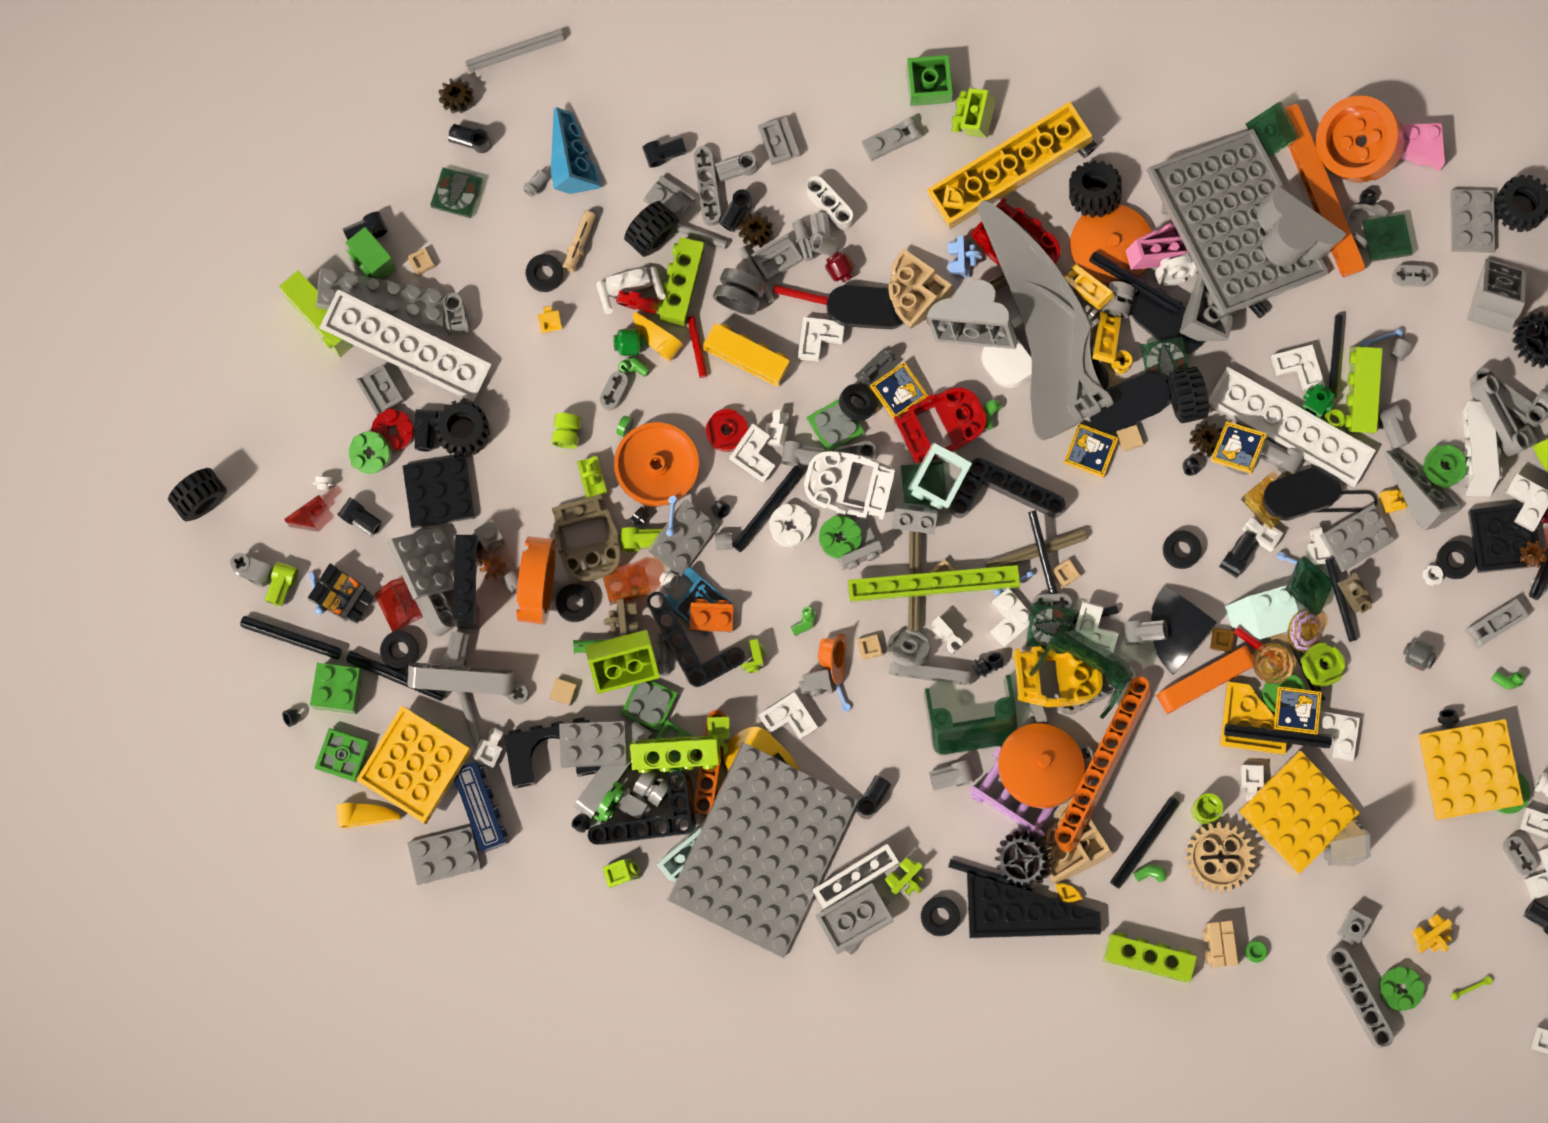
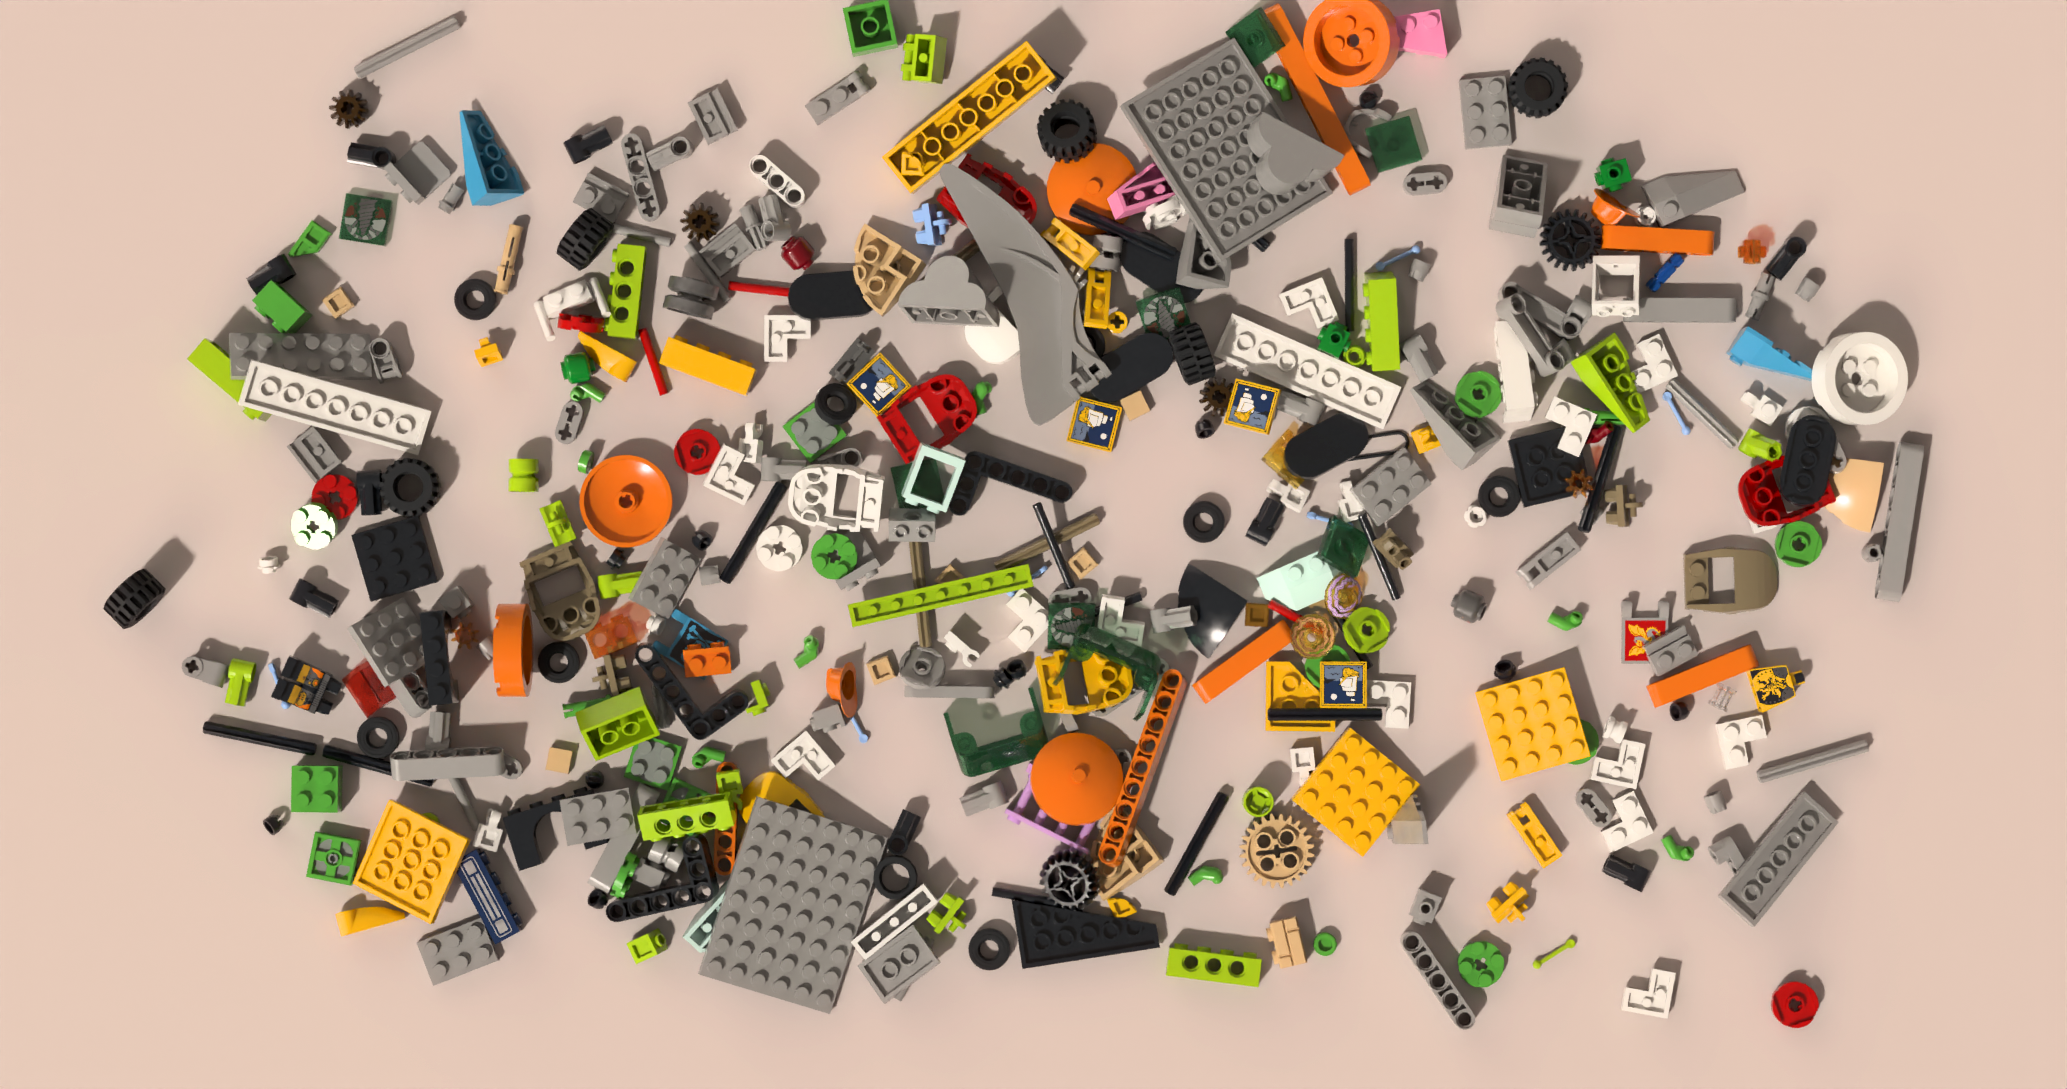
camera: 10 degrees left, 10 degrees up
(301, 517) = (251, 606): clear red slope -> none
(404, 205) = (310, 241): none -> bright green tile
(509, 157) = (417, 173): none -> light grey bracket
(593, 718) = (597, 774): none -> black hinge
(672, 500) = (649, 541): light blue hinge -> none
(699, 703) = (706, 754): none -> bright green arm
(735, 212) = (675, 206): black piece -> none
(865, 822) = (895, 859): none -> black tyre
(1290, 174) = (1279, 83): none -> bright green arm
(1463, 874) = (1534, 835): none -> yellow plate

